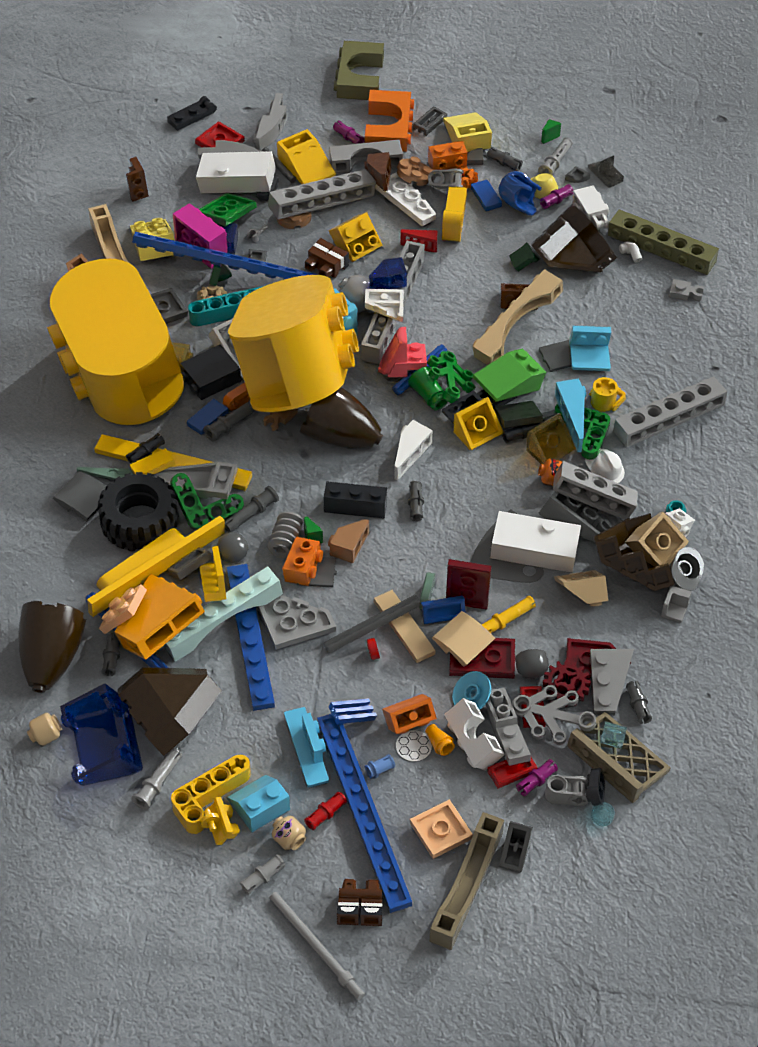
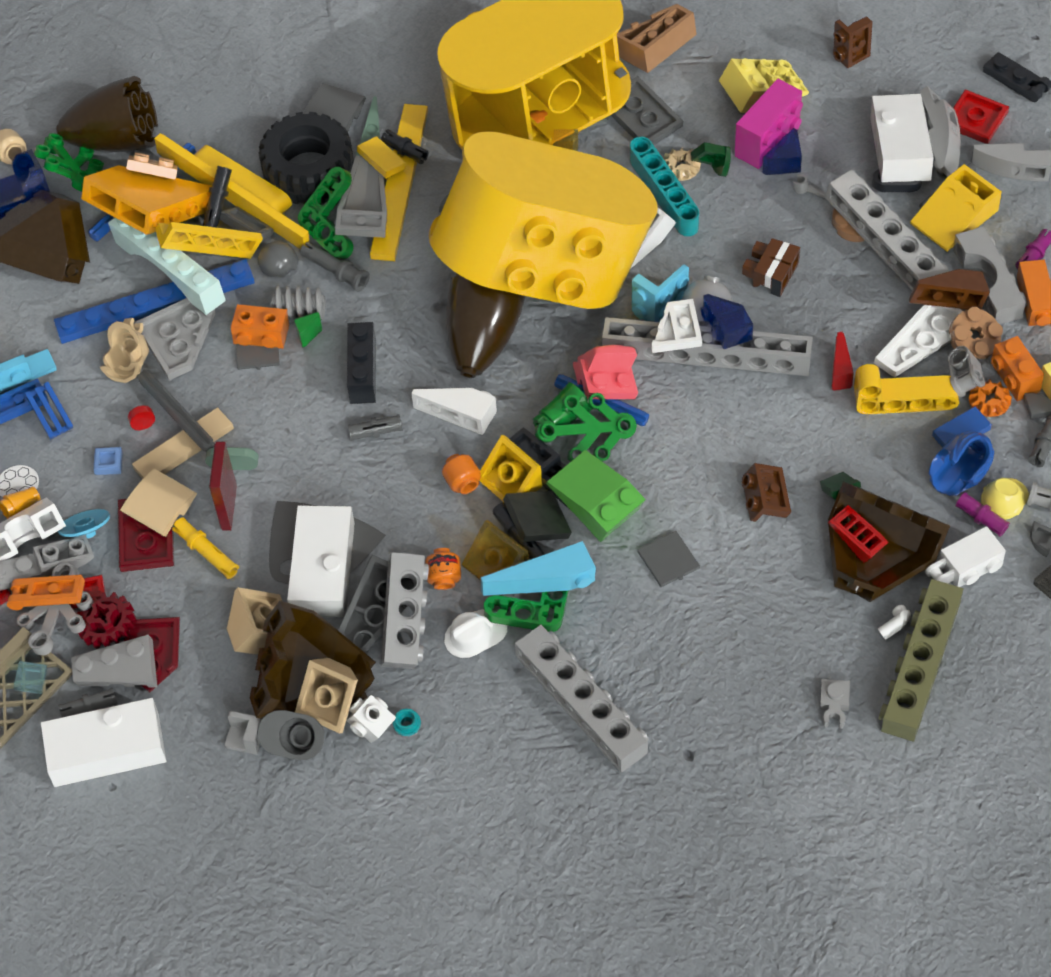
camera: 85 degrees right, 5 degrees up
(75, 688) = (54, 144): none -> green plant
(105, 233) = (761, 31): tan arch -> none
(164, 567) = (217, 195): none -> black pin
(216, 257) = (724, 155): blue plate -> none
(228, 208) = (830, 142): green tile -> none
(258, 255) = (763, 198): dark grey tile -> none
(309, 651) = (126, 351): none -> tan helmet
(349, 540) = (298, 368): medium nougat slope -> none
(356, 236) = (824, 290): yellow slope -> none
(407, 678) = (108, 460): none -> medium blue tile
(409, 714) = (45, 463): orange brick -> none
(442, 609) = (201, 472): blue tile -> none
(472, 451) = (461, 473): none -> orange head
(532, 663) = (123, 578): dark grey hair -> none
(539, 293) = (658, 470): tan arch -> none
(541, 713) = (45, 591): none -> orange plate
(568, 251) = (864, 527): none -> red slope
(590, 348) = (673, 588): medium azure bracket -> none
(605, 393) = (594, 616): yellow piece -> none
(676, 691) = (103, 742): none -> white brick

